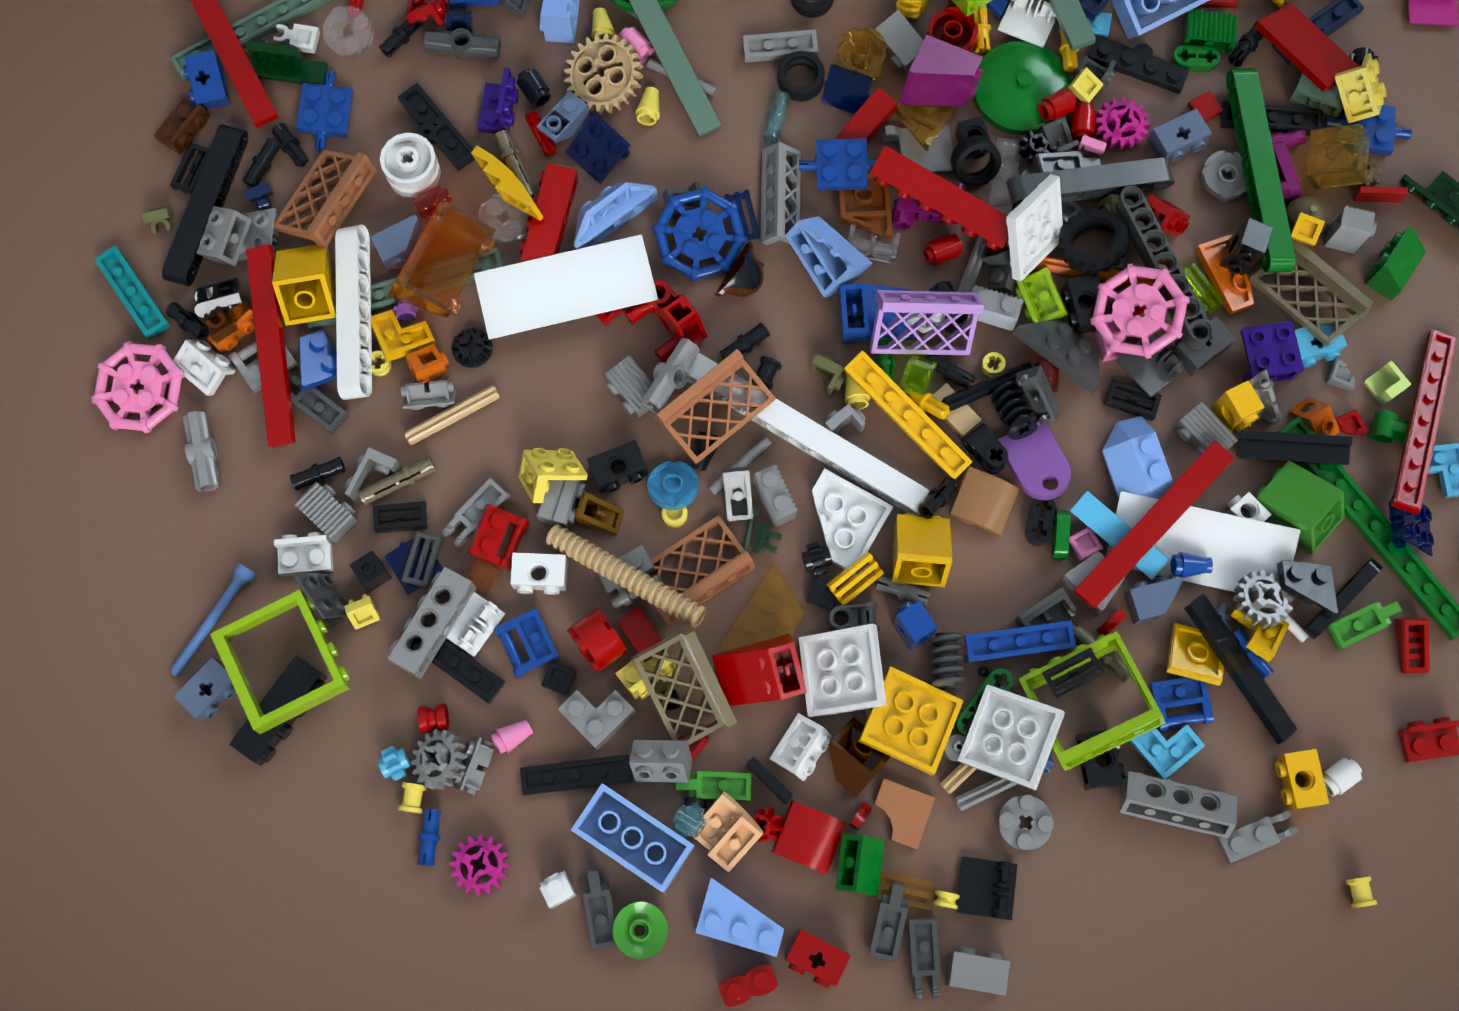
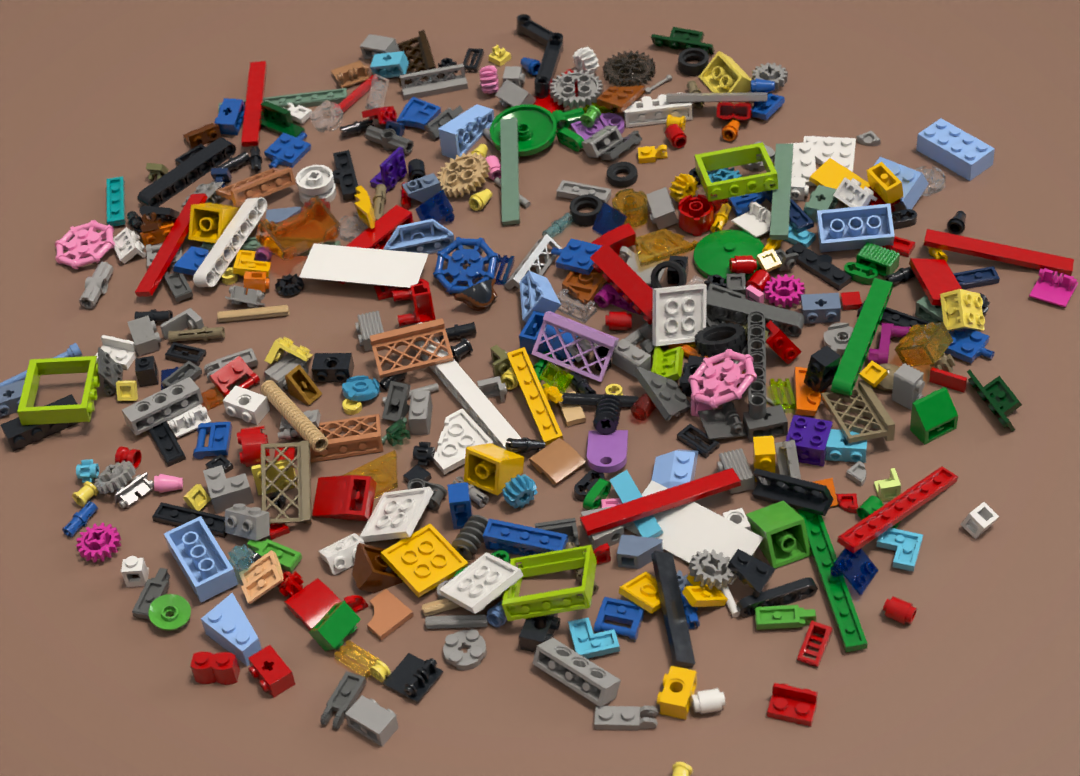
camera: 30 degrees right, 30 degrees down
(224, 236) = (184, 186): light grey brick -> none
(565, 744) = (197, 497): none -> light yellow tile
(670, 375) = (403, 319): light grey piece -> none
(769, 780) = (309, 560): black tile -> none
(857, 582) = (438, 463): yellow tile -> none
(889, 924) = (331, 667): dark grey hinge -> none
(942, 75) = (669, 224): magenta slope -> none
(971, 571) = (519, 491): none -> dark azure gear
(982, 445) = (577, 433): black piece -> none
(1039, 394) = (630, 408): dark grey hinge -> none
(1073, 673) = (546, 560): black tile -> none
(1189, 565) = (673, 536): blue cone -> none

